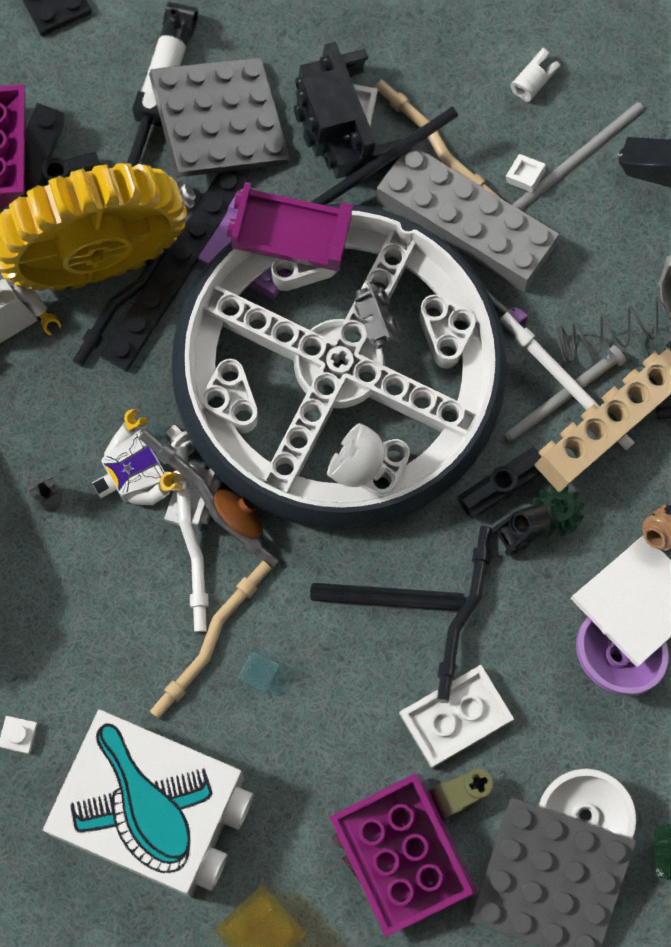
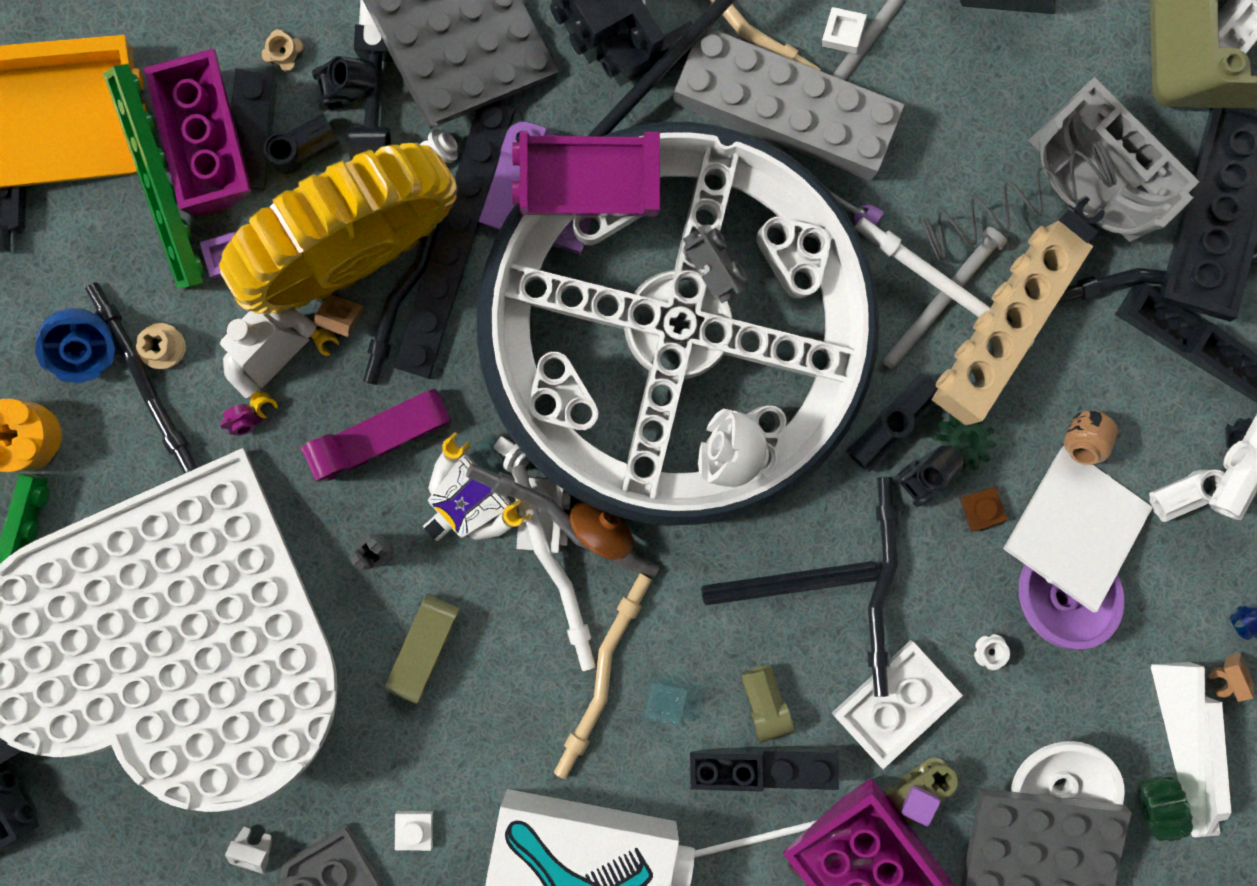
camera: 15 degrees left, 15 degrees up
(63, 582) = (421, 649): none -> olive beam
(66, 305) = (338, 315): none -> medium nougat plate
(72, 403) = (375, 436): none -> magenta beam
(75, 92) = (279, 40): none -> tan plate
(117, 130) = (344, 81): none -> black piece
(303, 809) = (753, 839): none -> white axle
(329, 744) = (764, 768): none -> black slope
(344, 697) = (768, 709): none -> olive piece
(455, 798) = (920, 805): none -> medium lavender piece
(551, 683) = (996, 660): none -> white plate
(564, 570) = (983, 509): none -> reddish brown plate

